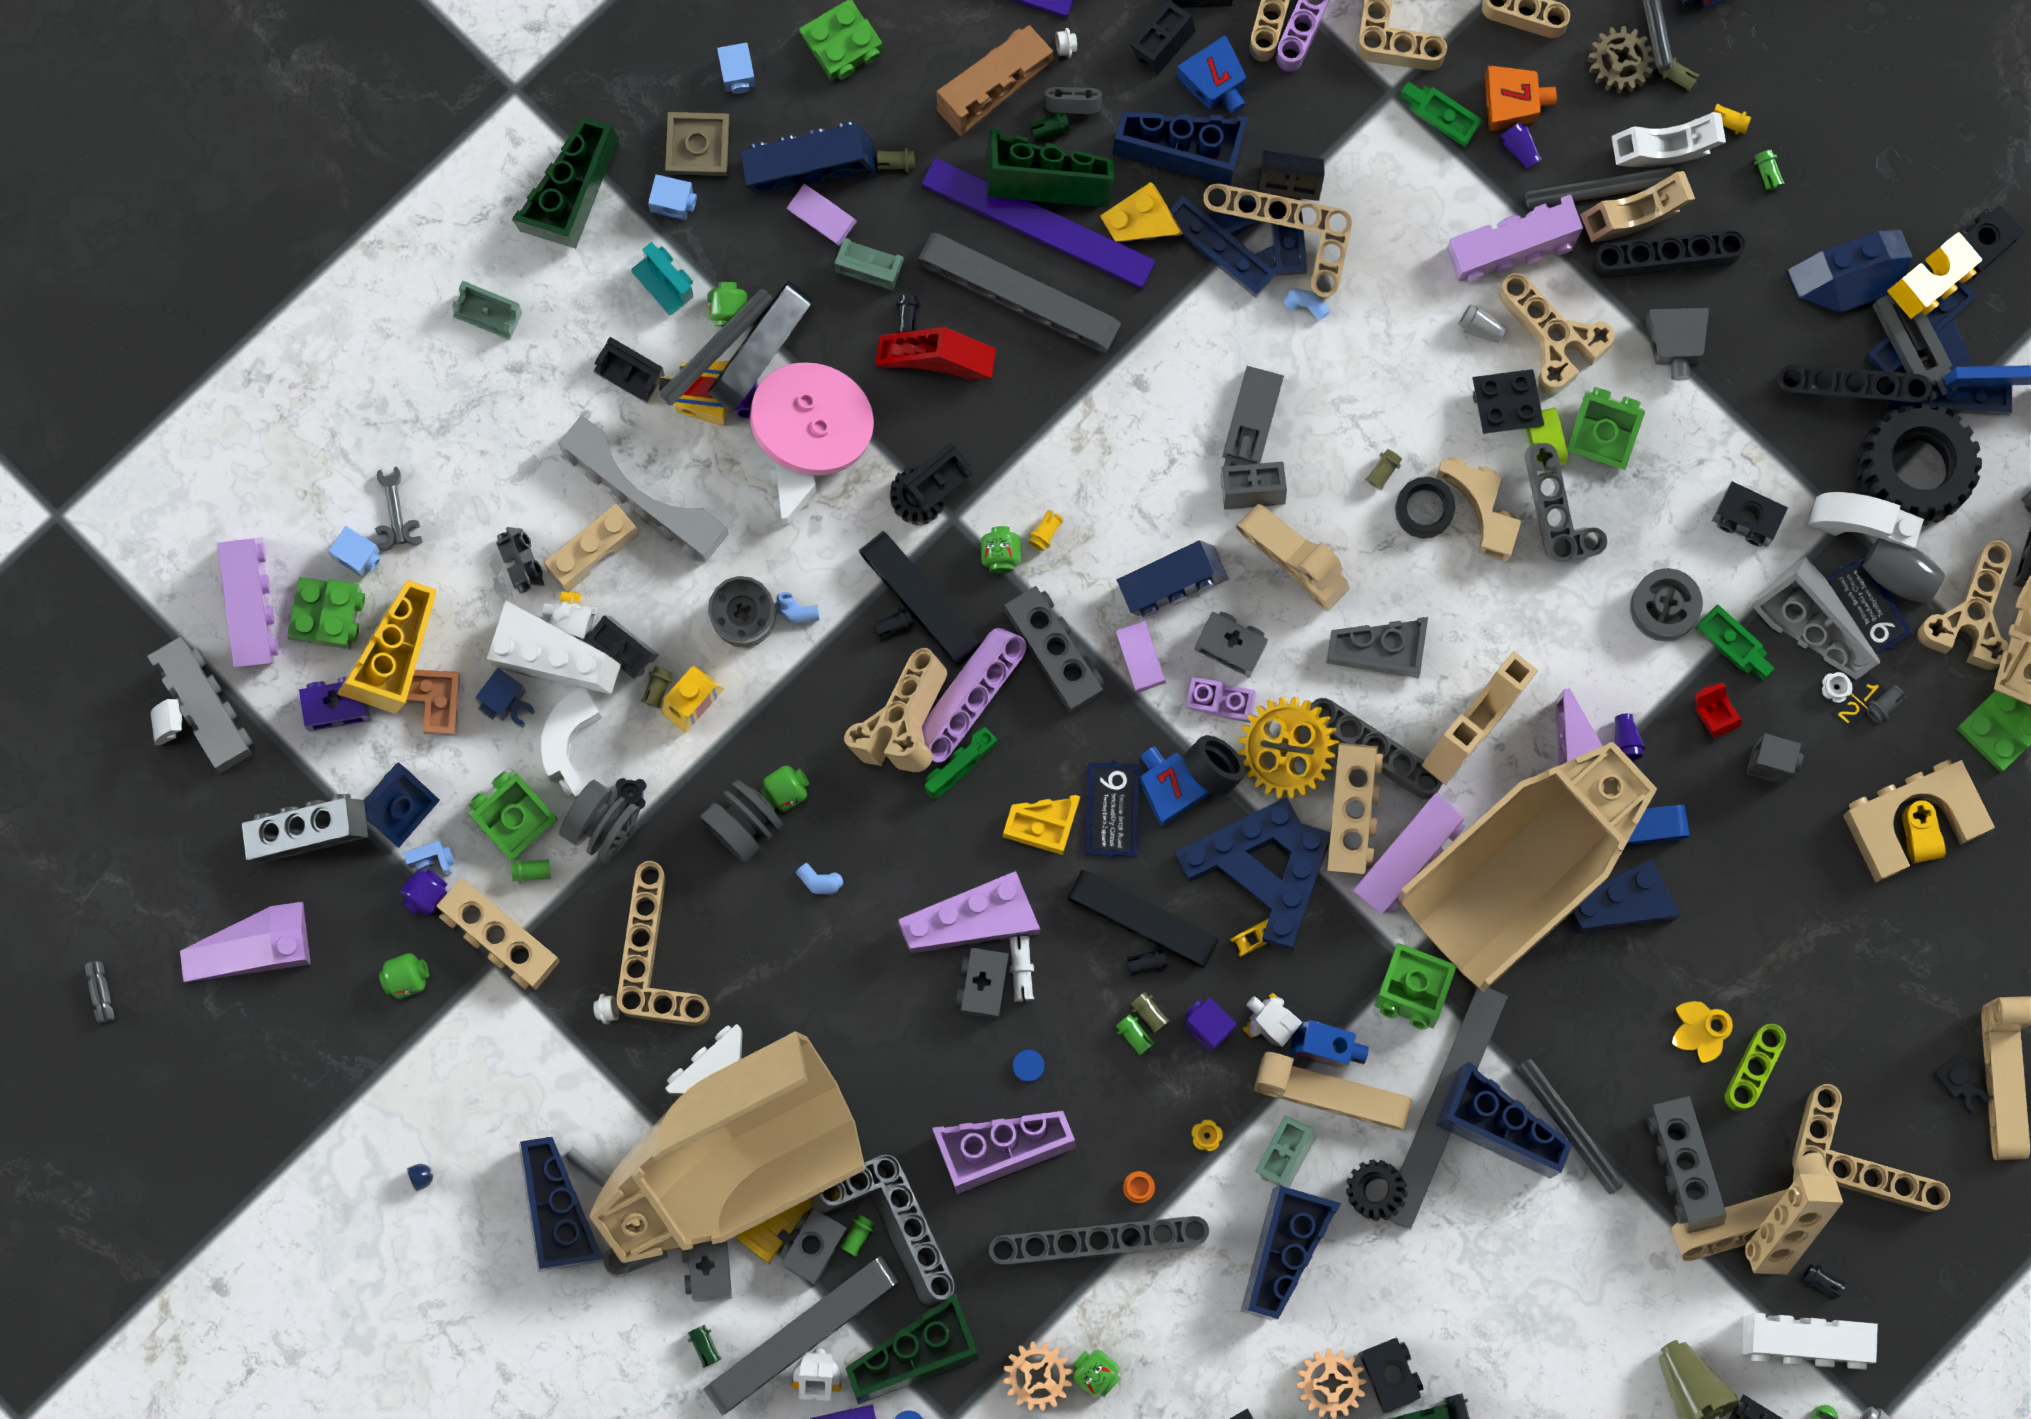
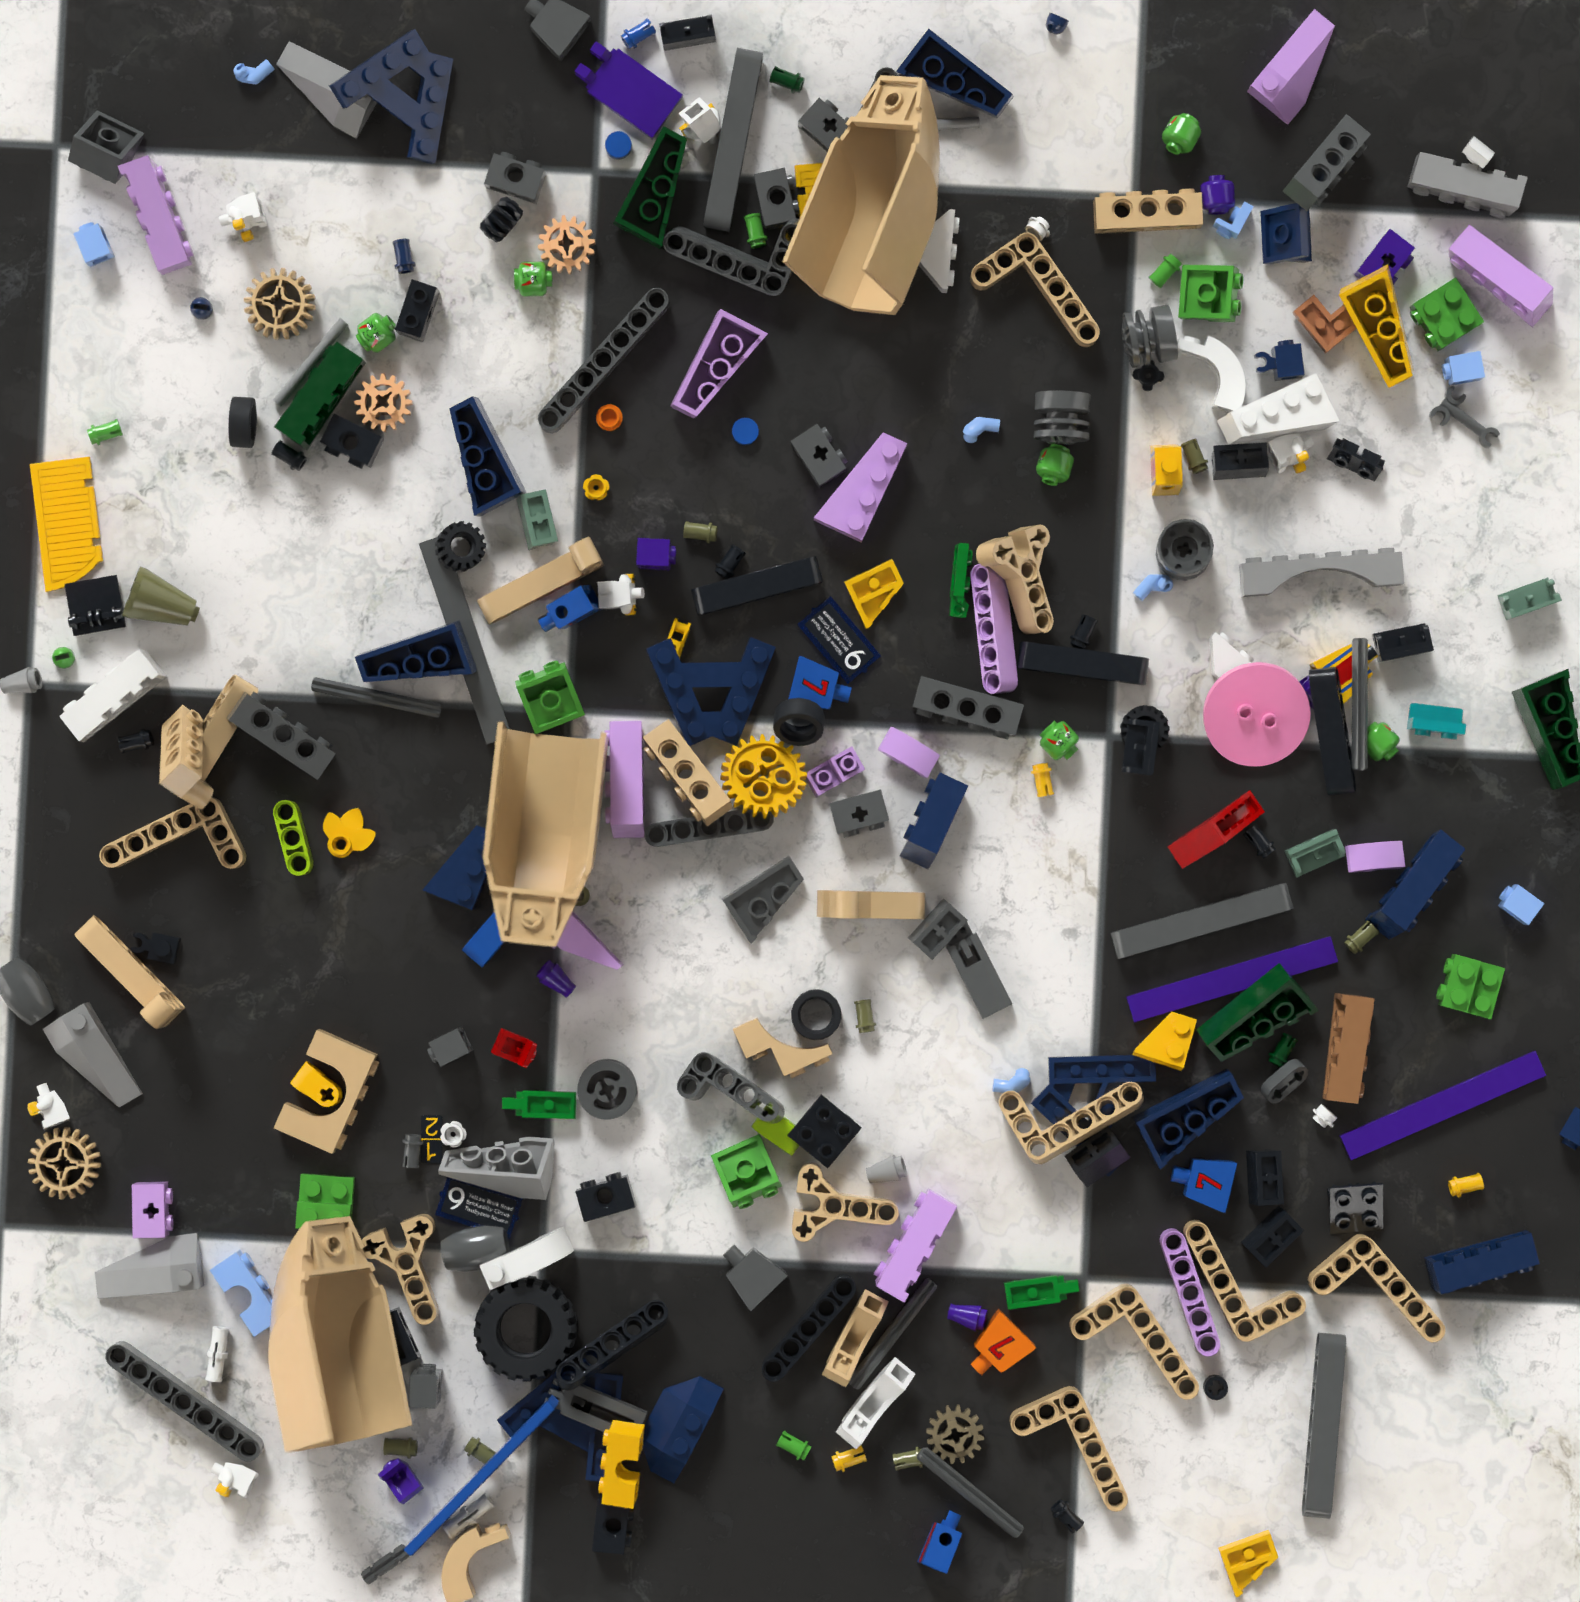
camera: 140 degrees right, 10 degrees up
(576, 558) = (1318, 511): tan arch -> none
(672, 197) = (1481, 780): light blue brick -> none
(697, 144) = (1498, 831): dark tan plate -> none
(1021, 968) = (804, 486): white pin -> none
(1134, 1034) = (697, 509): bright green pin -> none
(1480, 718) = (658, 899): tan arch -> none

